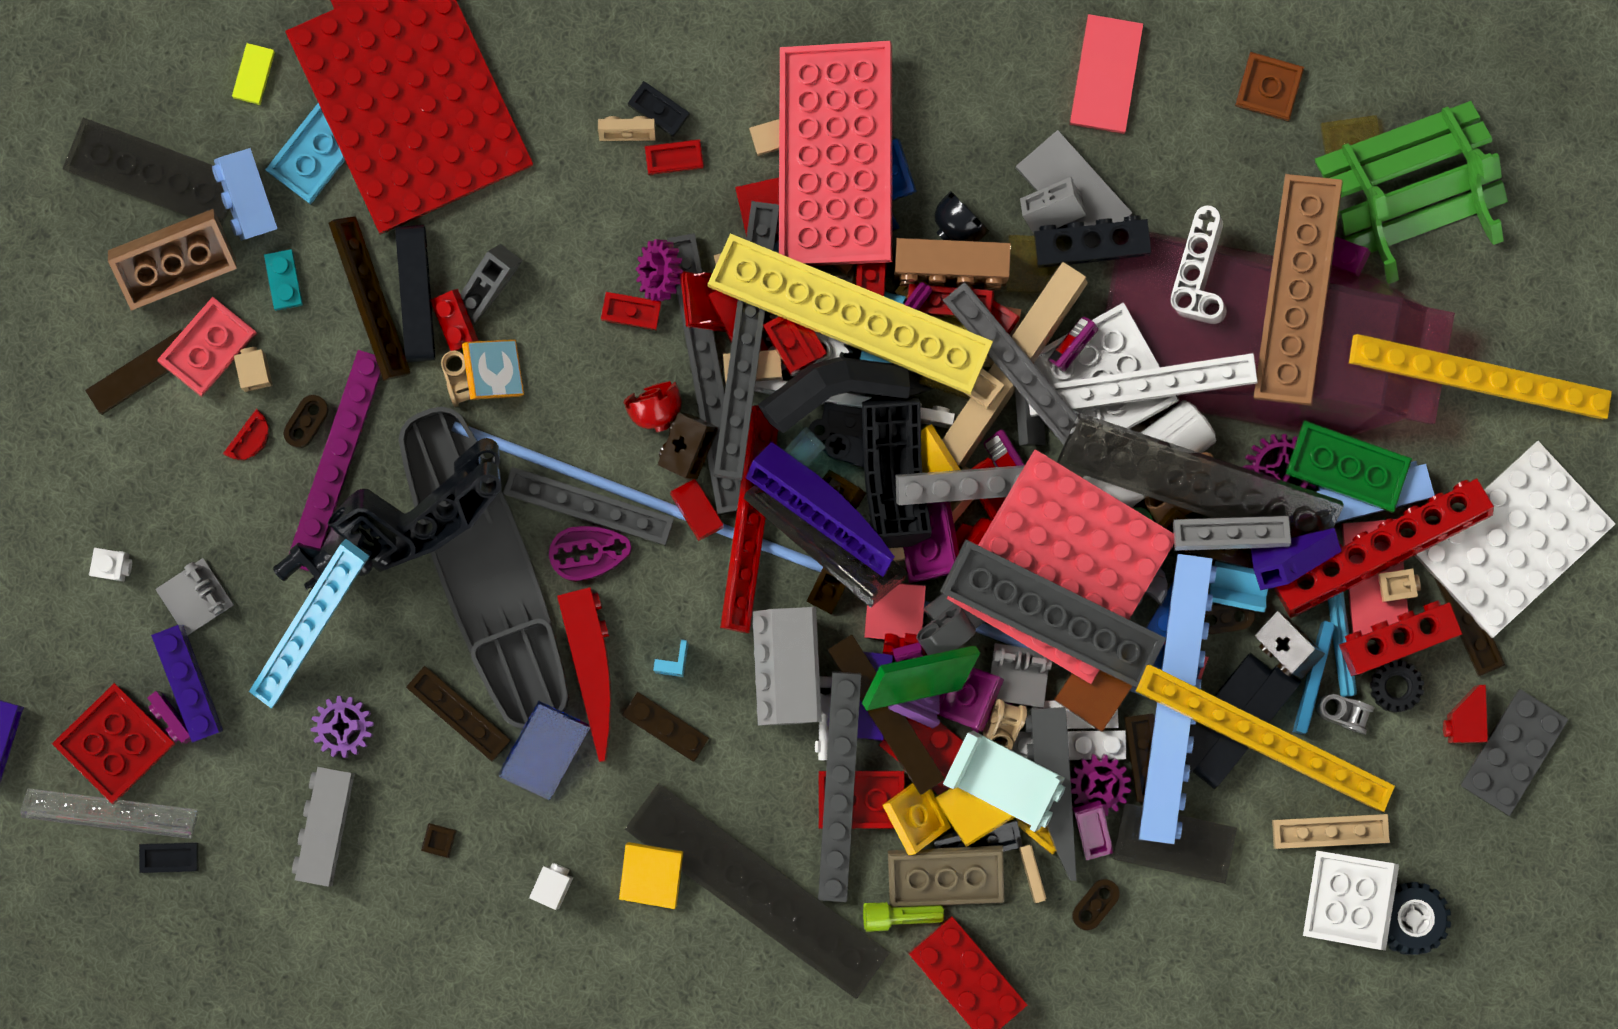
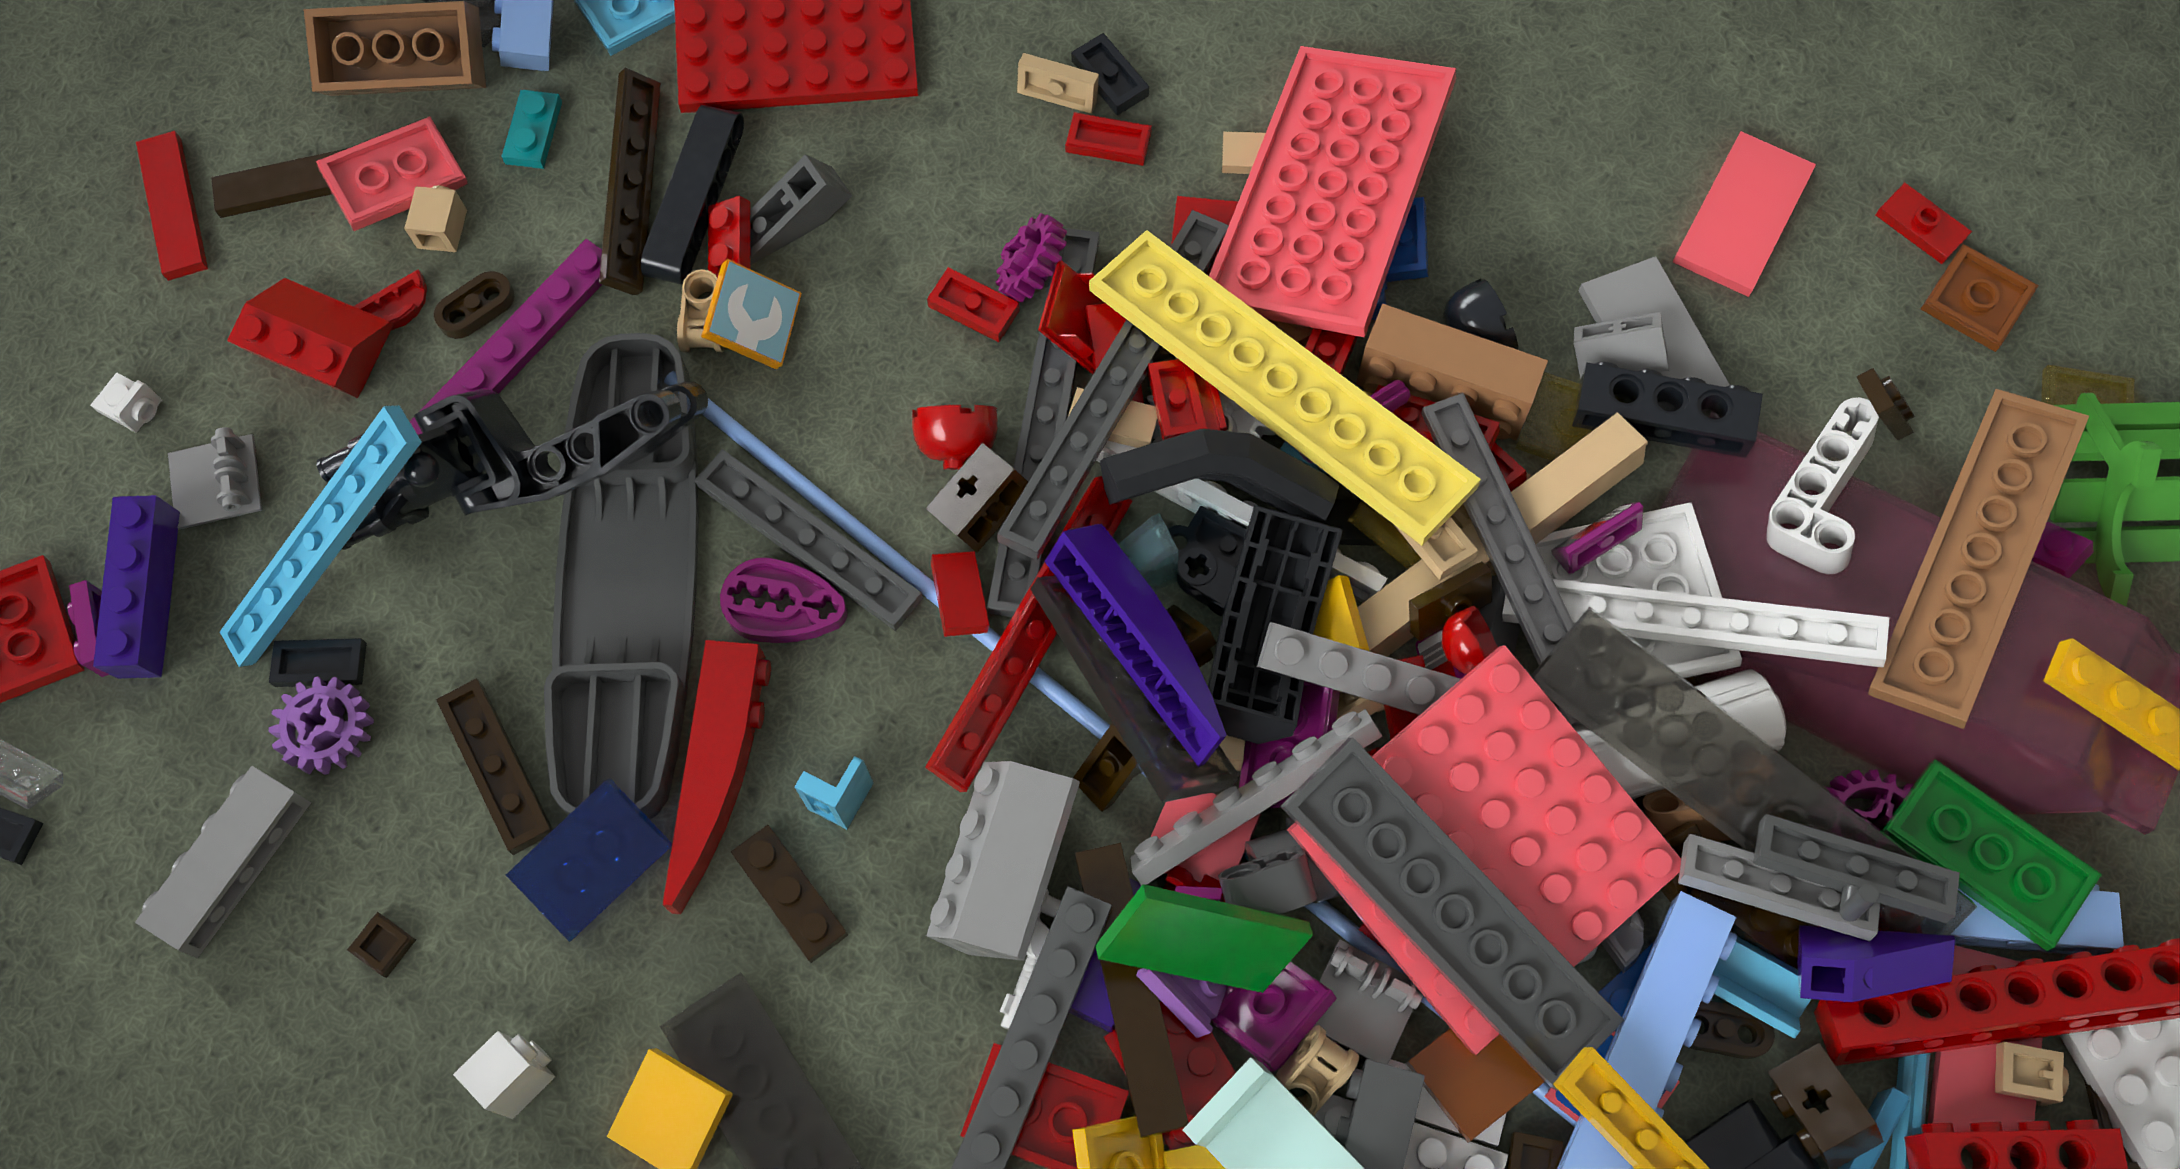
camera: 25 degrees right, 15 degrees down
(65, 417) = (171, 205): none -> red tile
(213, 480) = (312, 335): none -> red slope
(318, 688) = (304, 659): none -> black tile
(919, 583) = (1239, 805): none -> light grey plate
(997, 418) = (1434, 607): none -> dark brown plate
(1017, 442) = (1467, 639): none -> red hair
(1222, 43) = (1923, 223): none -> red plate
(1225, 197) = (1887, 403): none -> dark brown plate
(1270, 511) = (1856, 869): none -> dark grey plate

